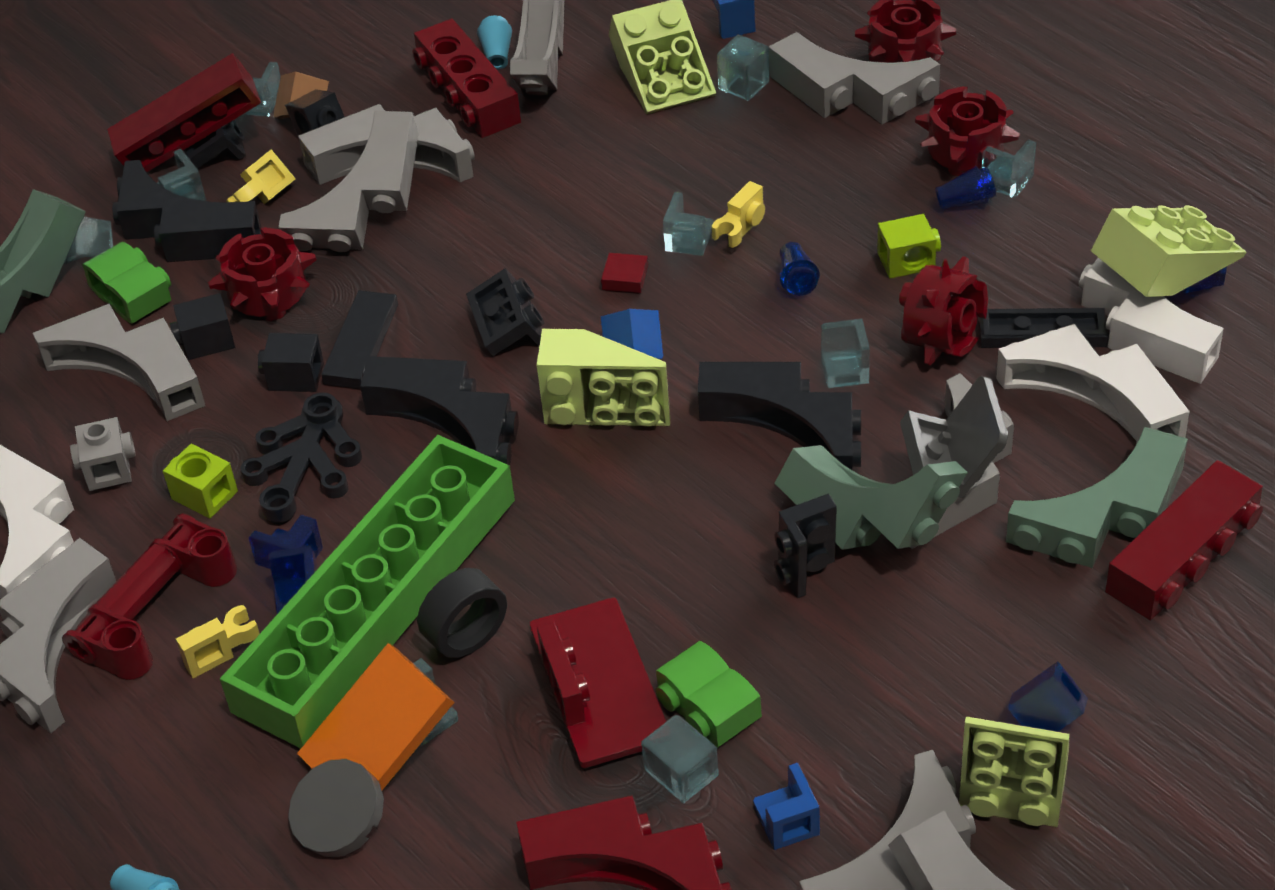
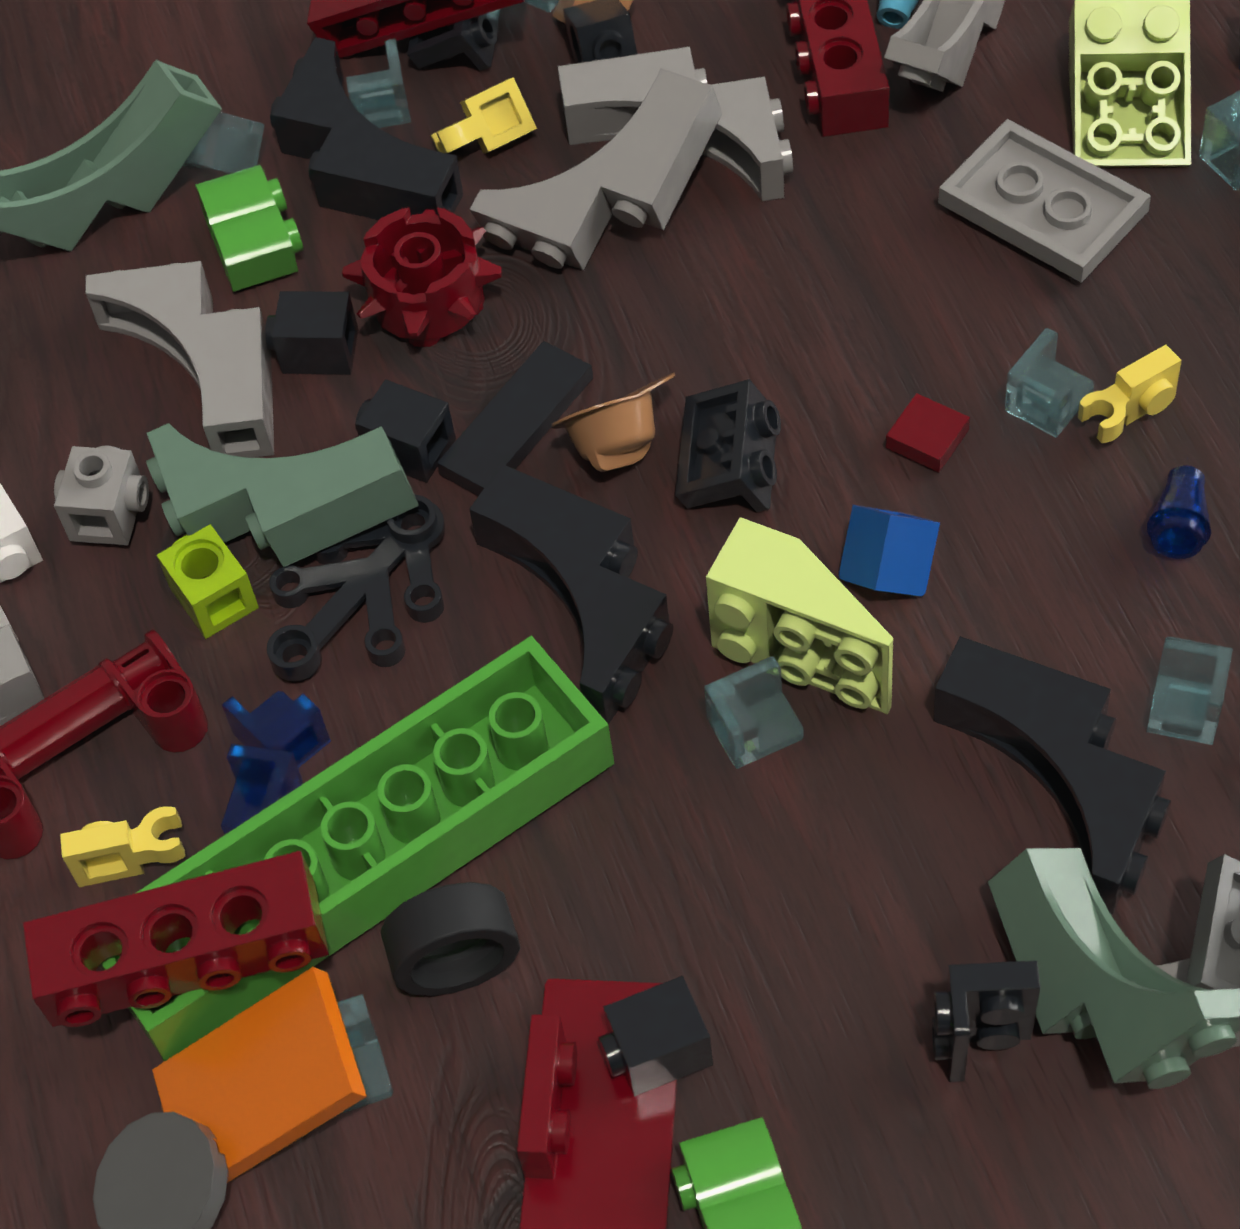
camera: 25 degrees right, 10 degrees up
(235, 418) = (284, 501): none -> sand green arch
(293, 654) = (142, 925): none -> dark red brick
(429, 321) = (614, 431): none -> medium nougat piece
(585, 447) = (752, 713): none -> clear light blue panel
(616, 620) = (655, 1036): none -> black brick
(637, 132) = (1044, 200): none -> light grey plate

